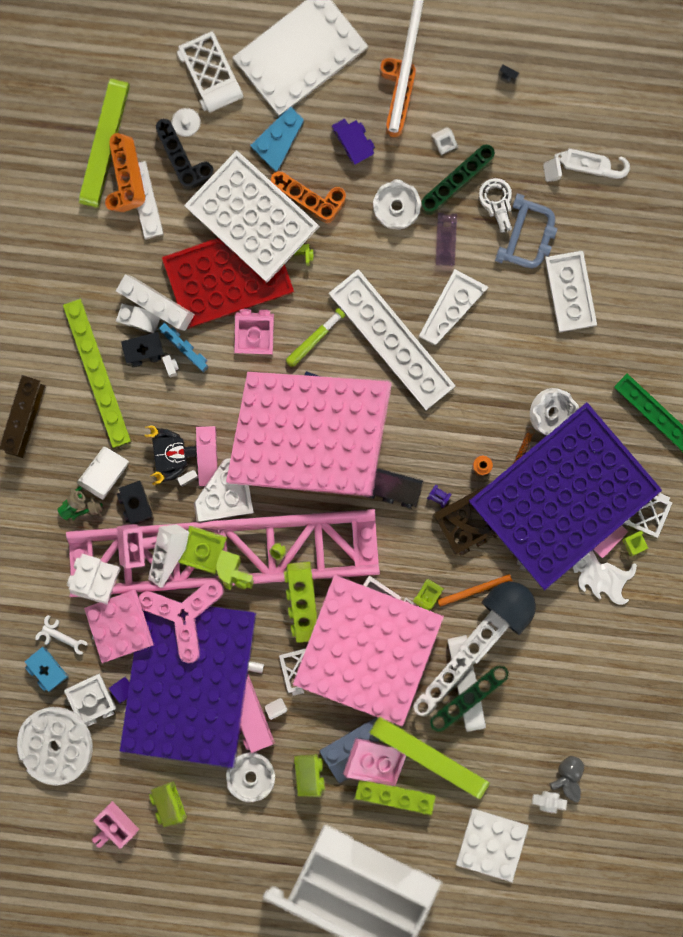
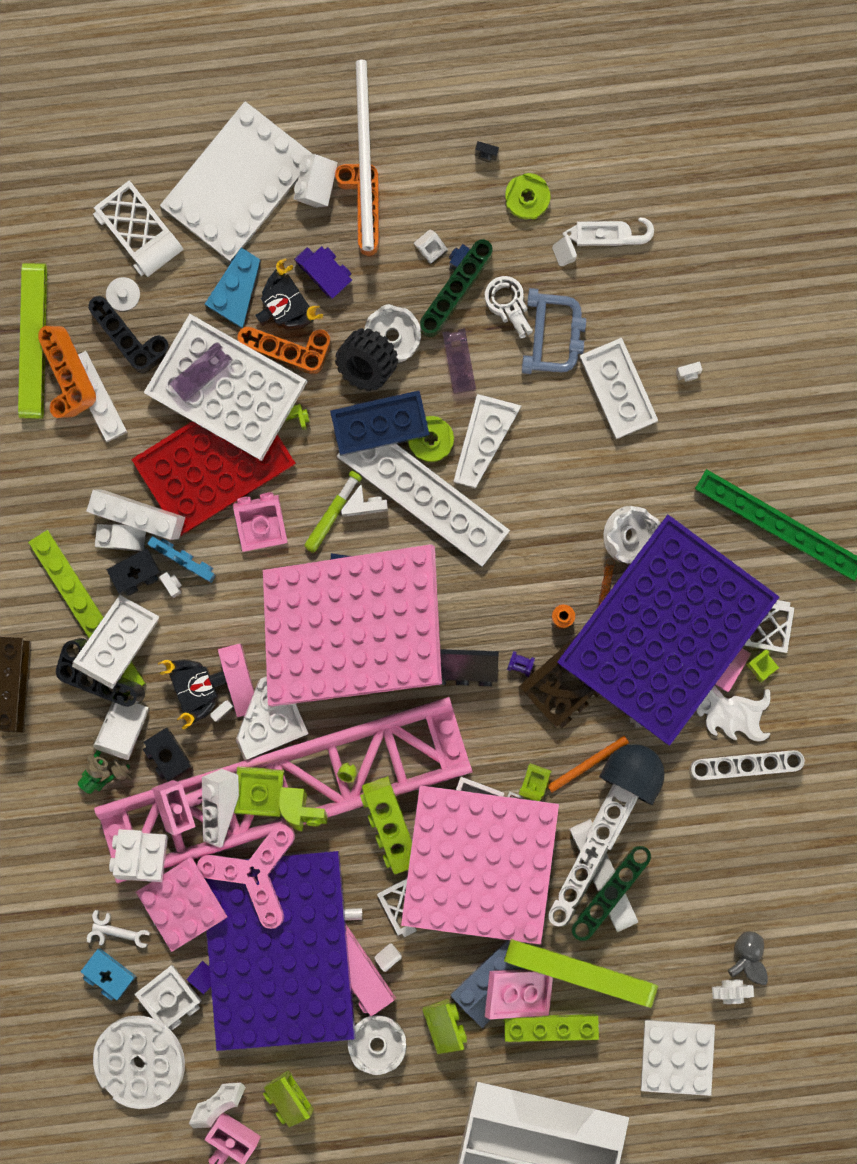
camera: 10 degrees left, 0 degrees up
(95, 427) = (97, 688): none -> black beam
(101, 798) = (209, 1110): none -> white tile
(115, 401) = (115, 641): none -> white plate
(234, 199) = (201, 372): none -> clear purple plate
(316, 158) = (285, 302): none -> torso
(335, 337) = (357, 506): none -> white slope
(363, 66) = (315, 180): none -> white brick
(370, 274) = (379, 423): none -> dark blue plate
(371, 220) = (366, 359): none -> black tyre
(417, 291) = (441, 448): none -> lime plate
(464, 153) = (457, 256): none -> dark blue plate
(533, 129) = (523, 184): none -> lime plate
(613, 619) = (757, 765): none -> white beam
(631, 291) = (689, 372): none -> white plate

